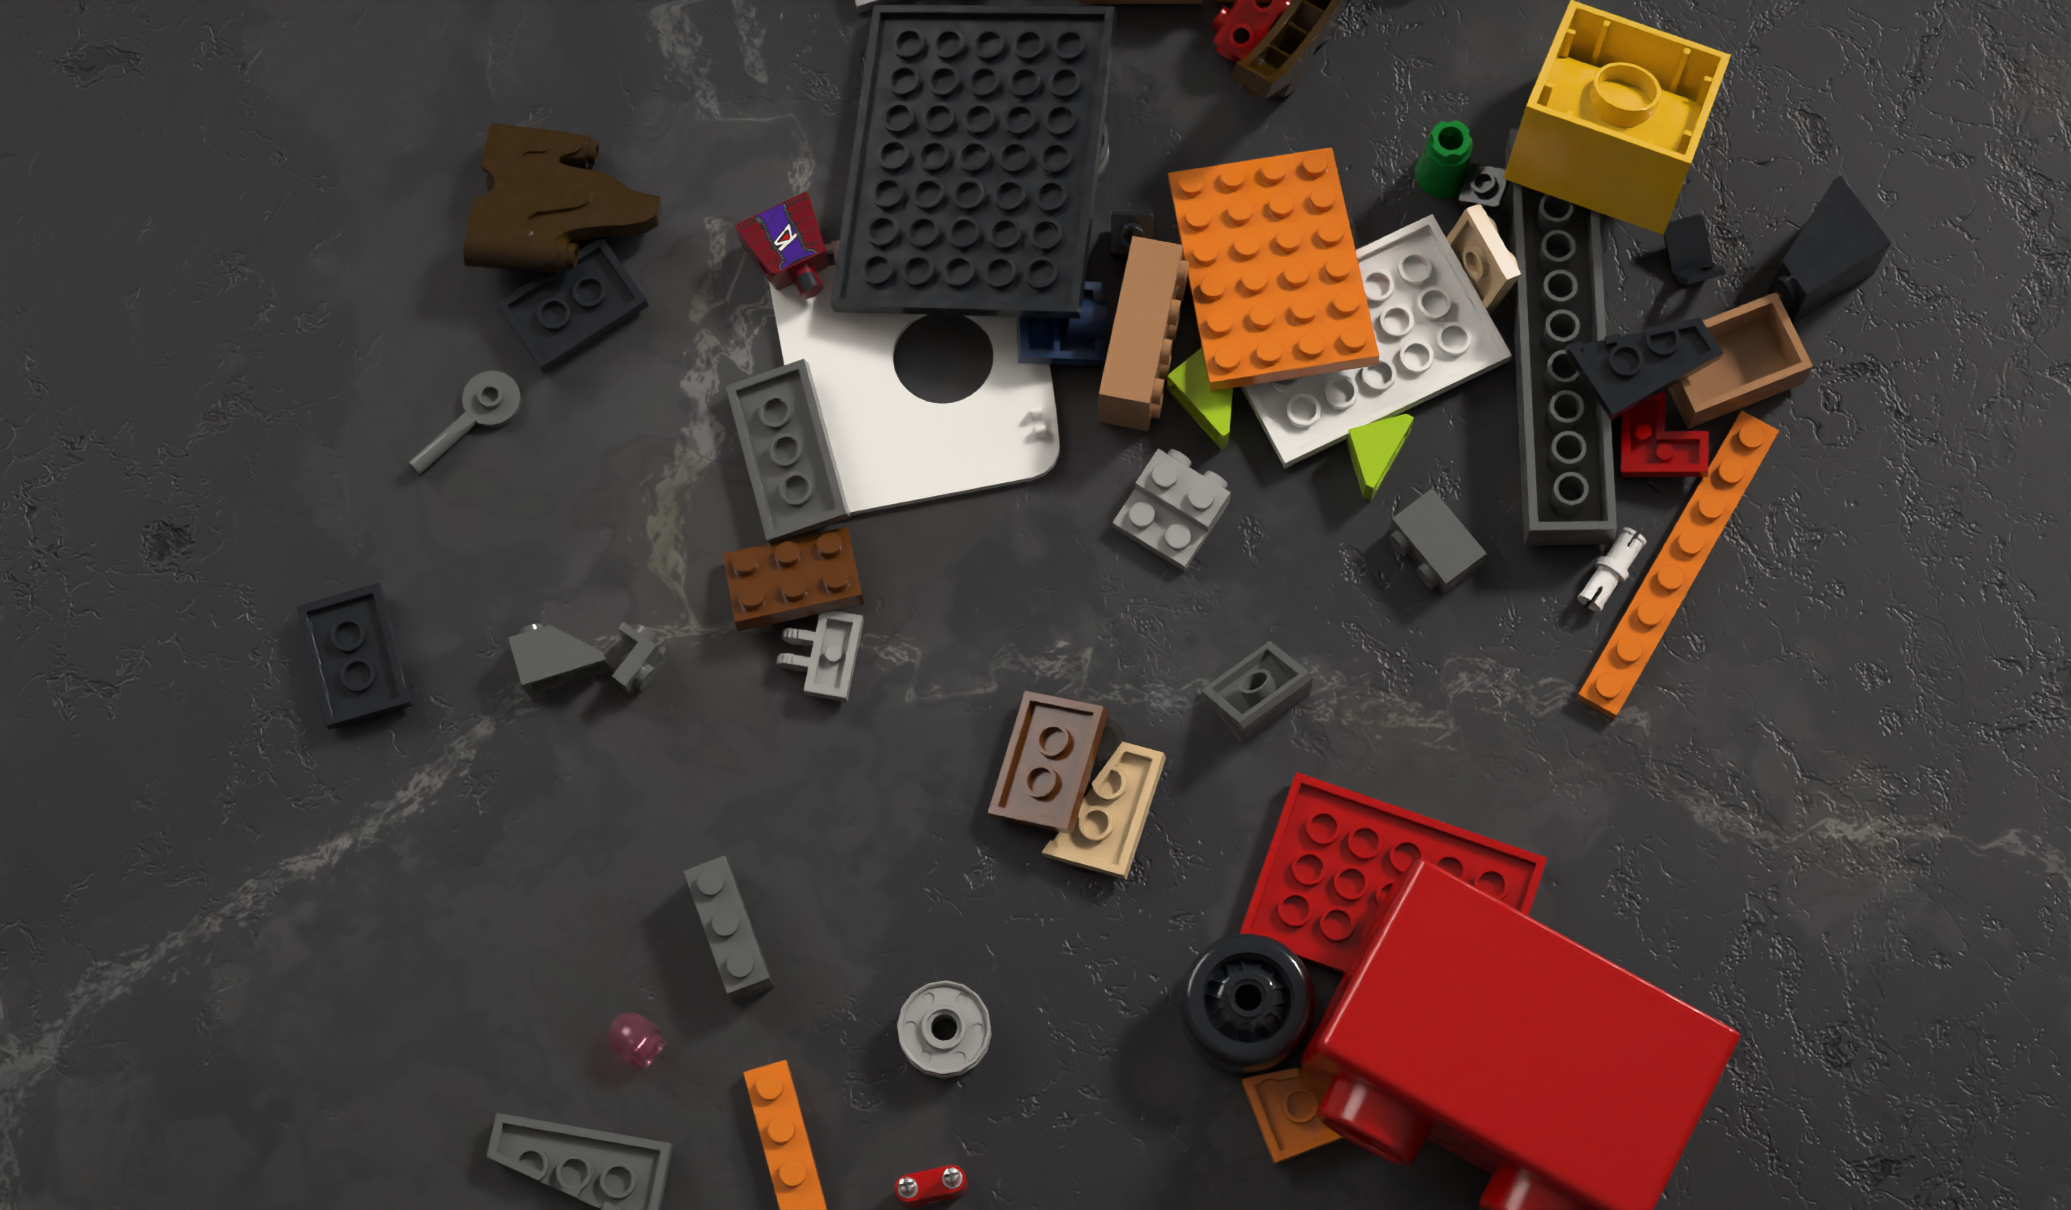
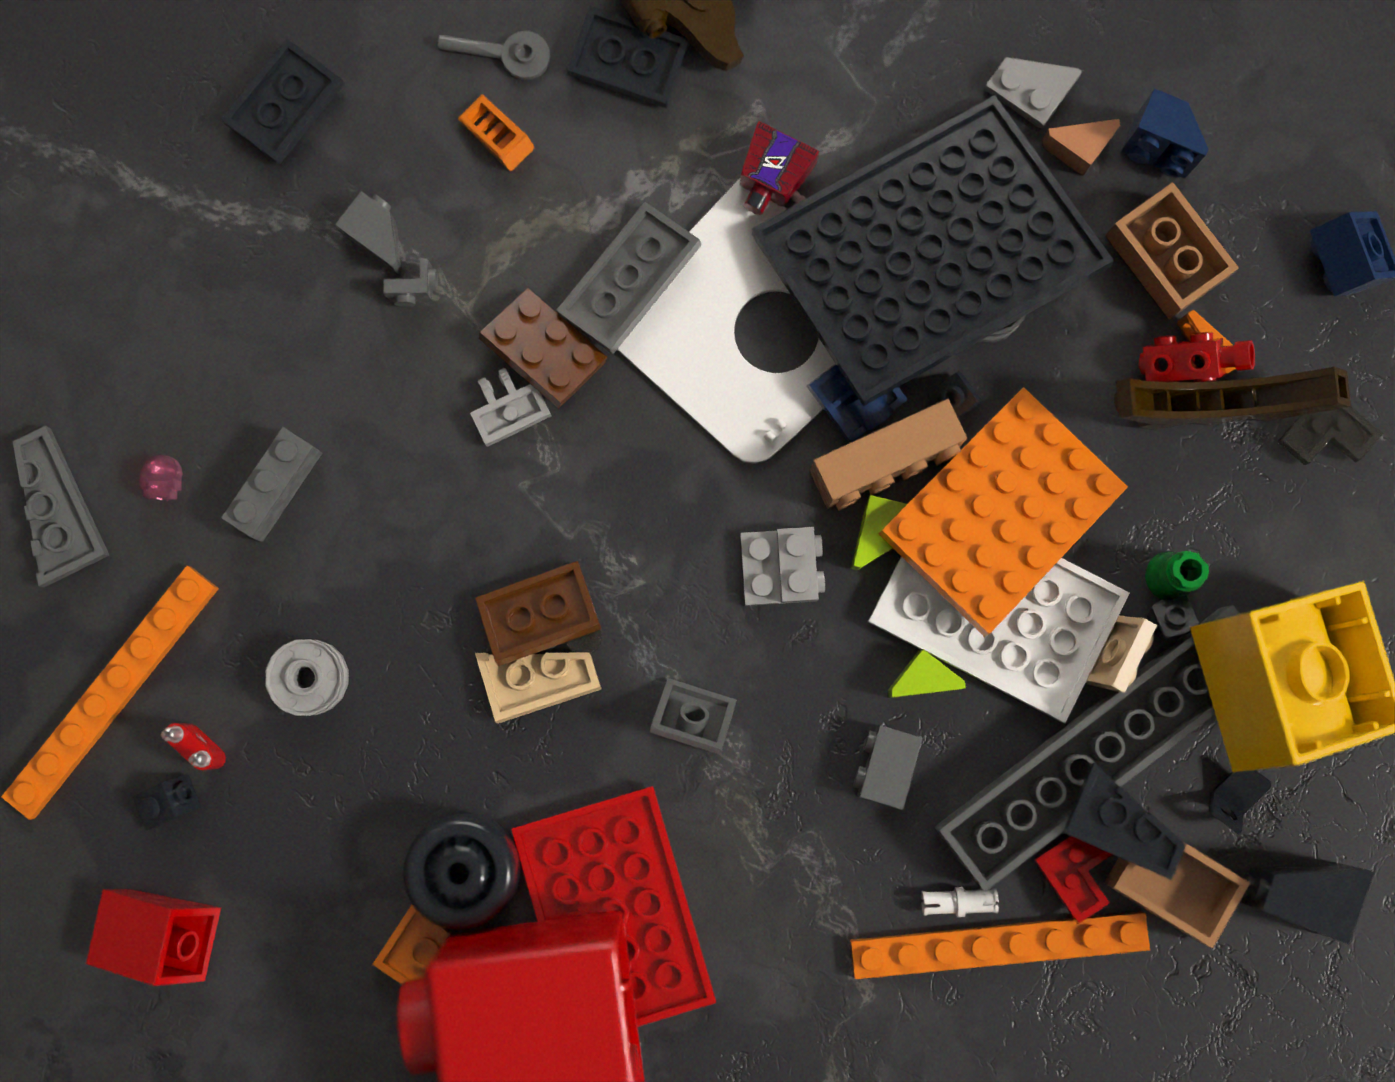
camera: 50 degrees right, 10 degrees up
(579, 485) = (512, 147): none -> orange slope

